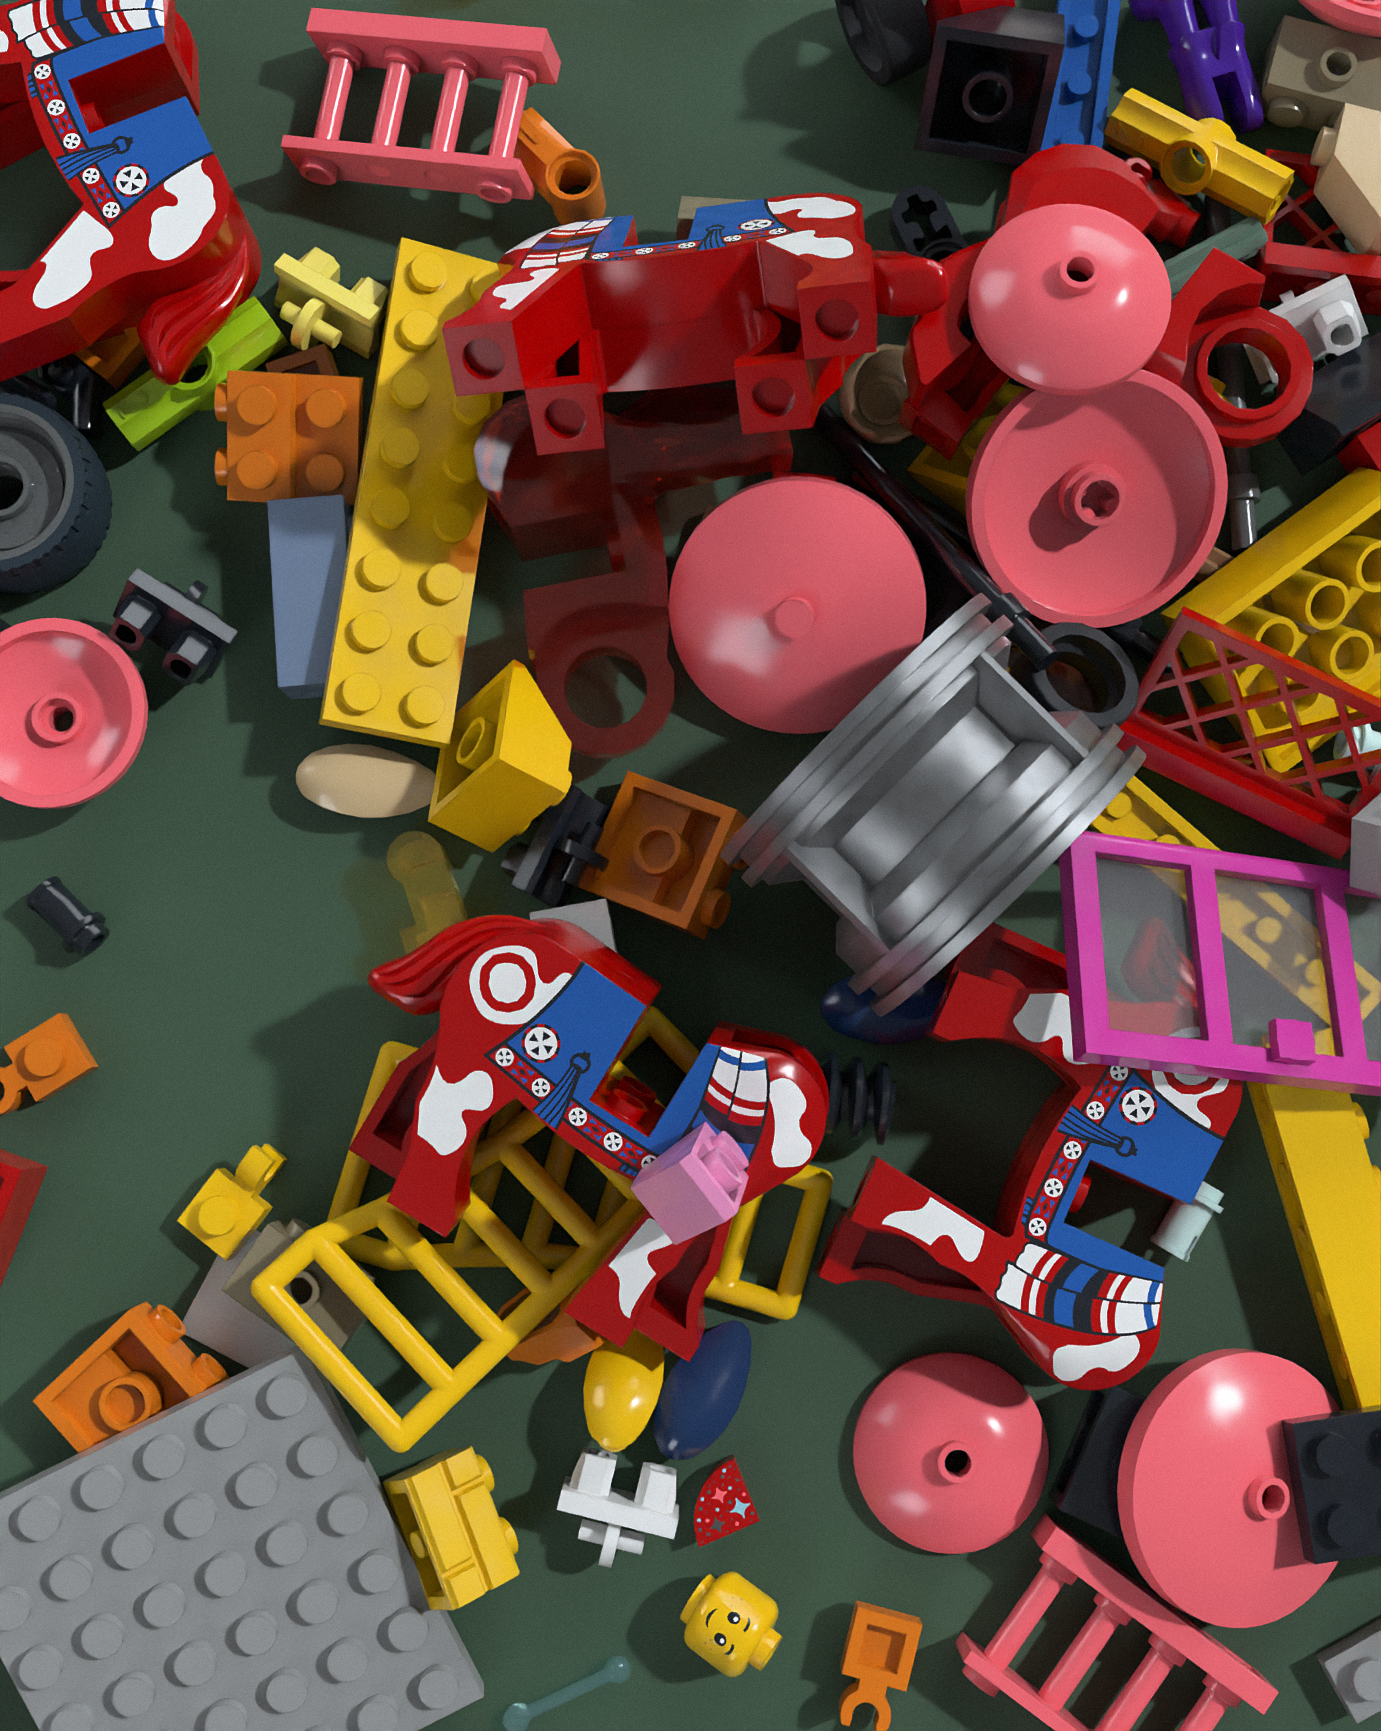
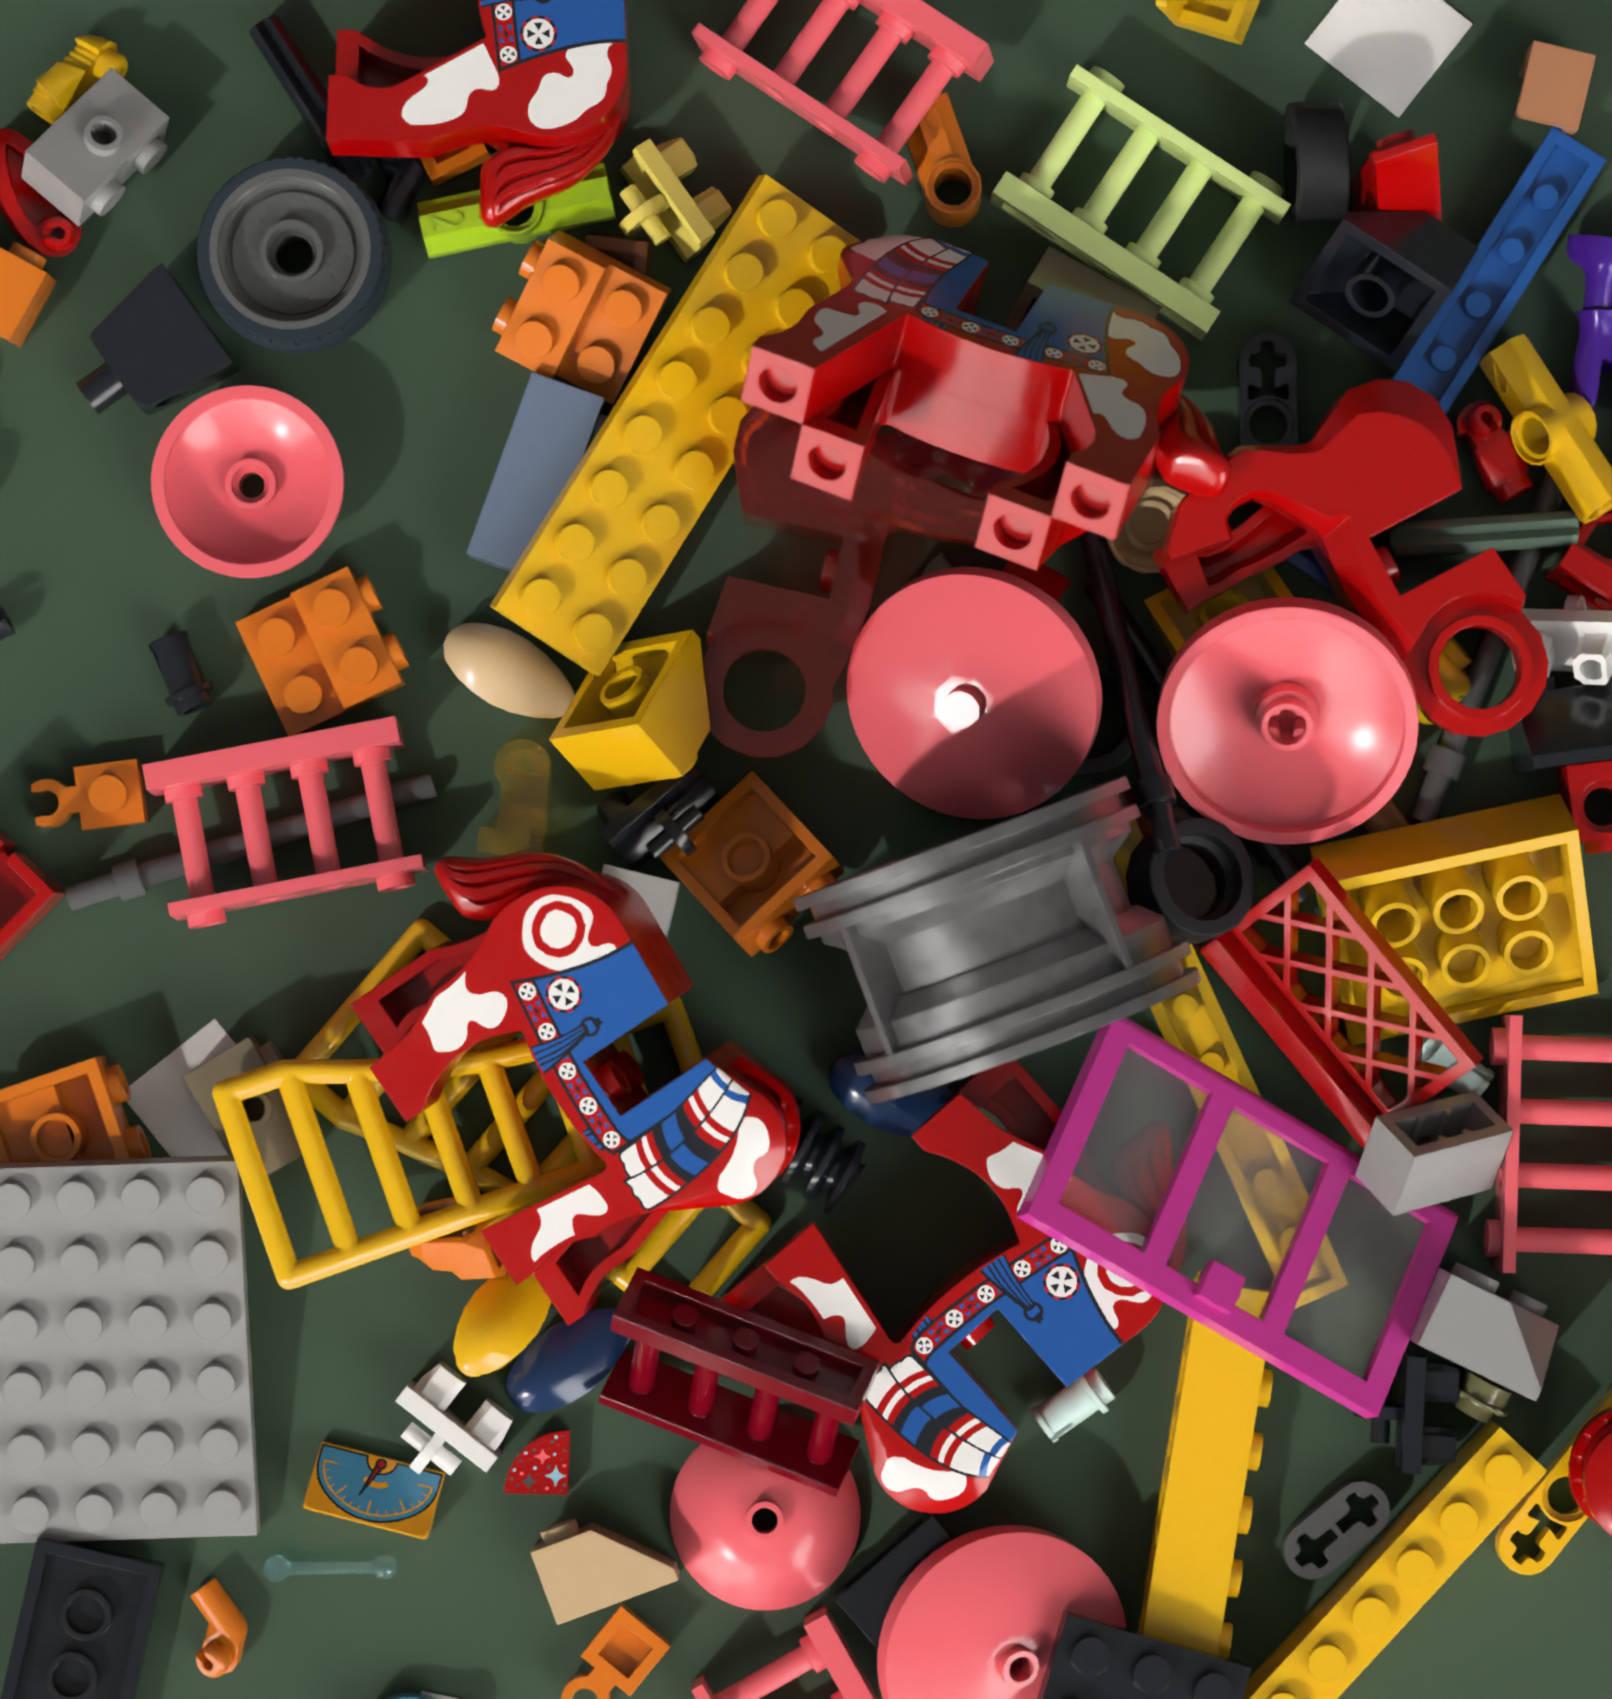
camera: 25 degrees right, 5 degrees up
(104, 1124) = (133, 878): none -> dark grey bar
(162, 979) = (245, 772): none -> coral fence
(173, 621) = (396, 444): black hips -> none
(191, 838) = (323, 651): none -> orange plate
(230, 1206) = (215, 1004): yellow plate -> none
(453, 1527) = (296, 1375): yellow brick -> none
(575, 1602) = (373, 1490): none -> slope
(665, 175) = (1084, 229): none -> yellowish green fence
(694, 1183) = (641, 1172): bright pink slope -> none
(731, 1624) = (500, 1570): yellow head -> none
(819, 1581) = (595, 1568): none -> tan slope
(870, 1309) = (752, 1351): none -> dark red fence
(1065, 331) = (1309, 576): coral dish -> none

